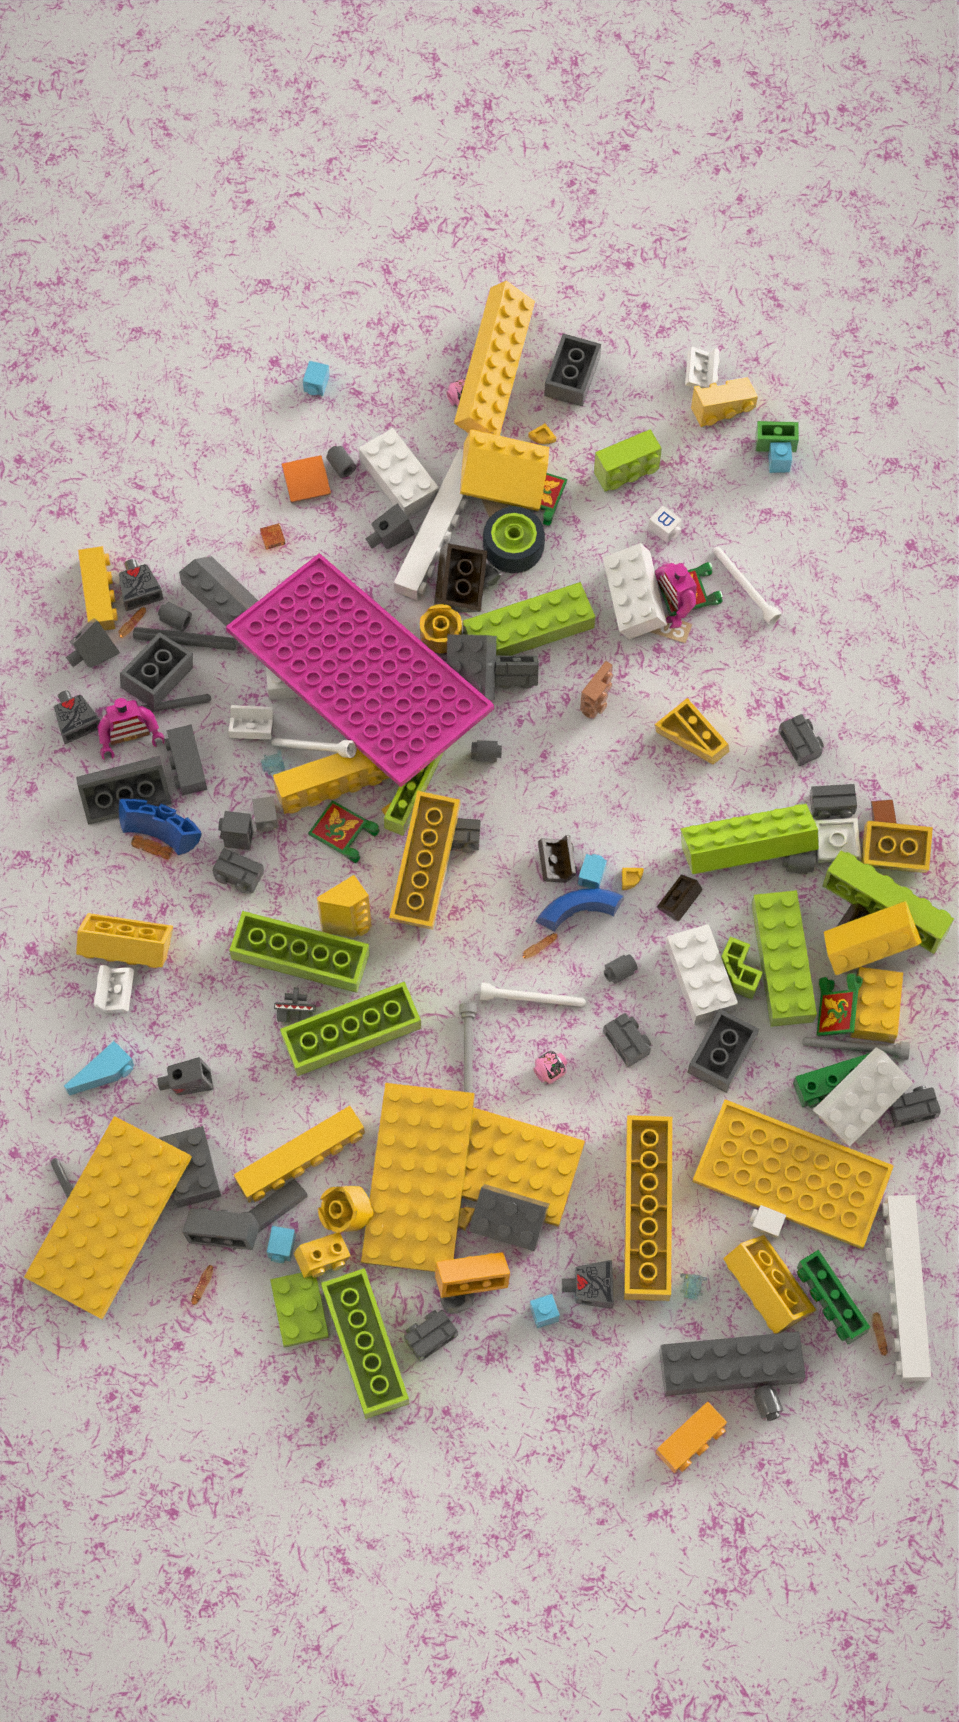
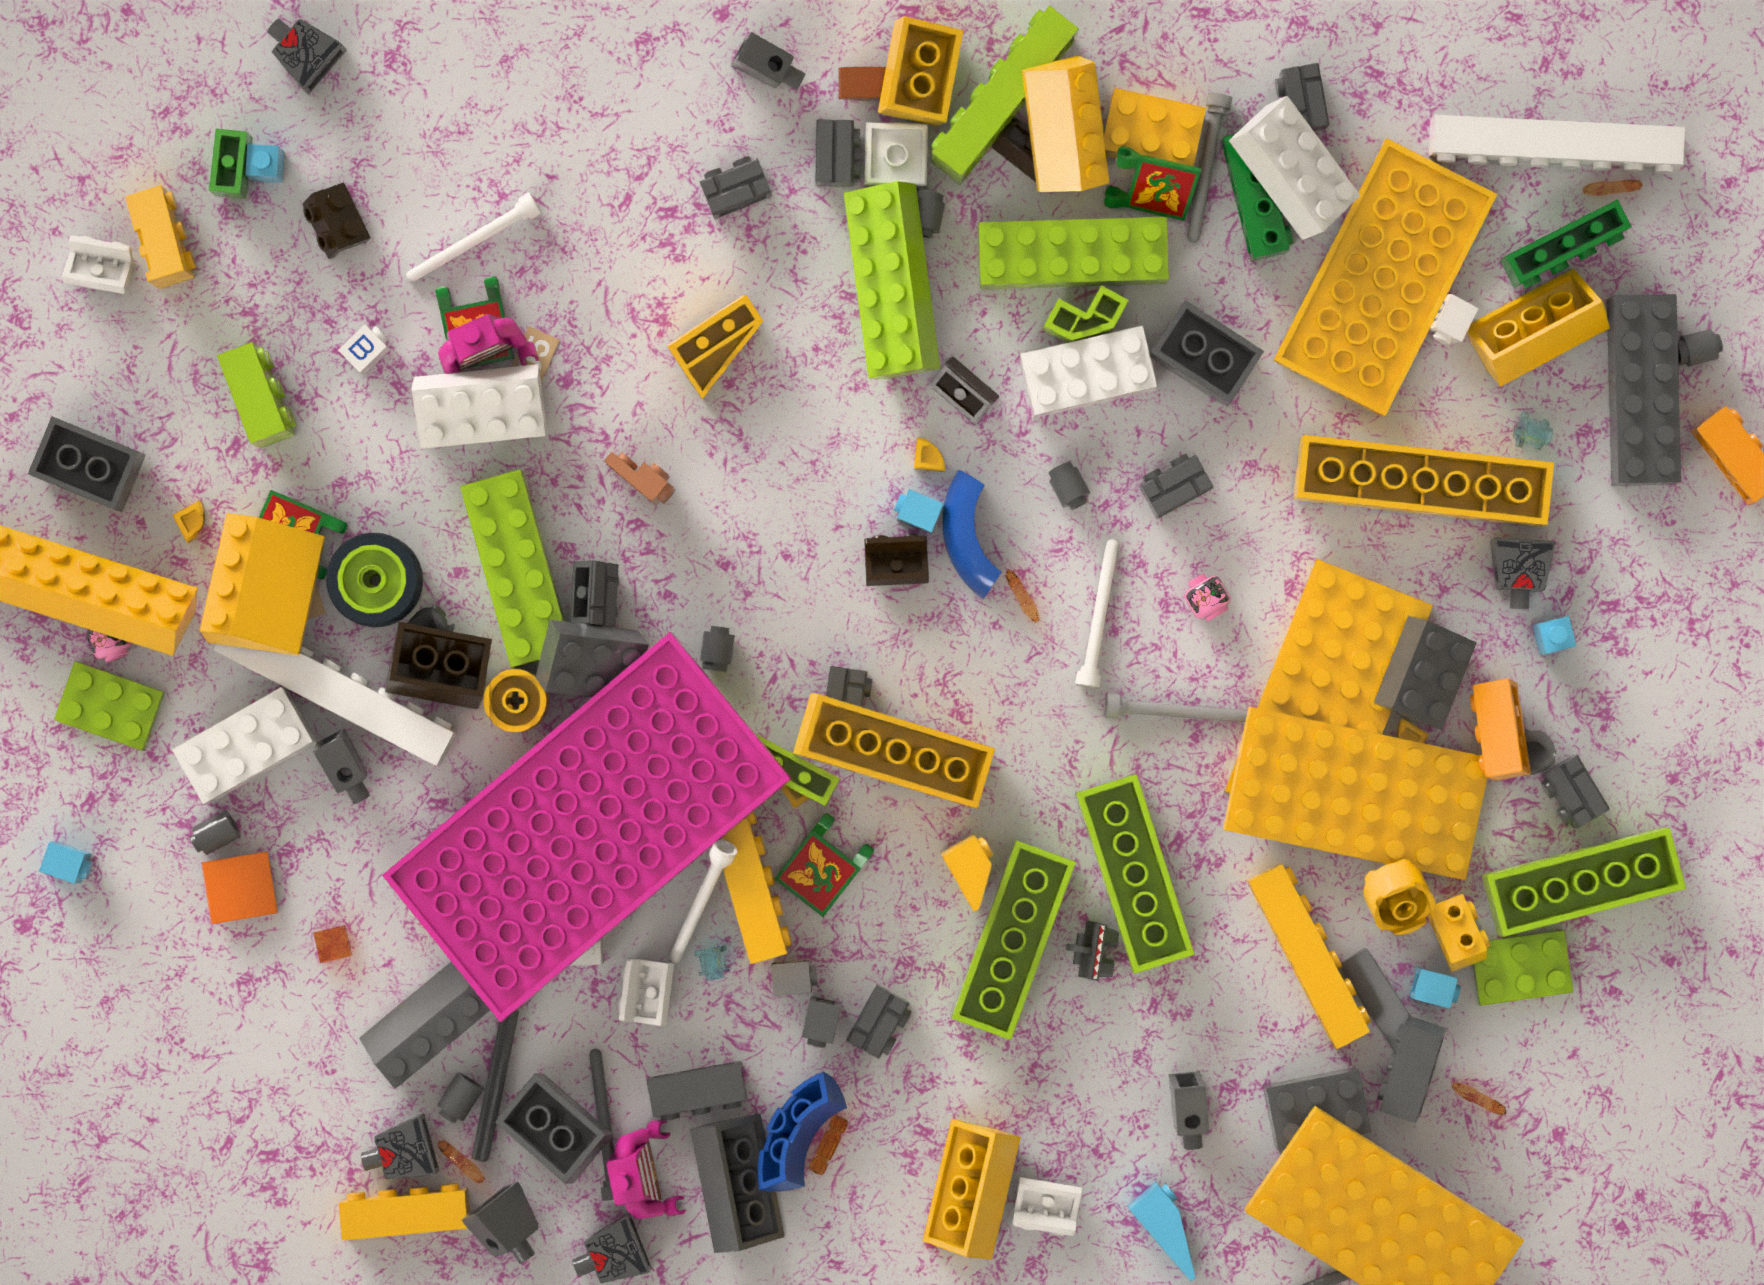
camera: 85 degrees left, 20 degrees up
(418, 398) = (109, 705): none -> lime plate
(748, 502) = (335, 220): none -> dark brown bracket
(855, 476) = (305, 52): none -> dark grey torso
(891, 745) = (754, 57): none -> dark grey torso

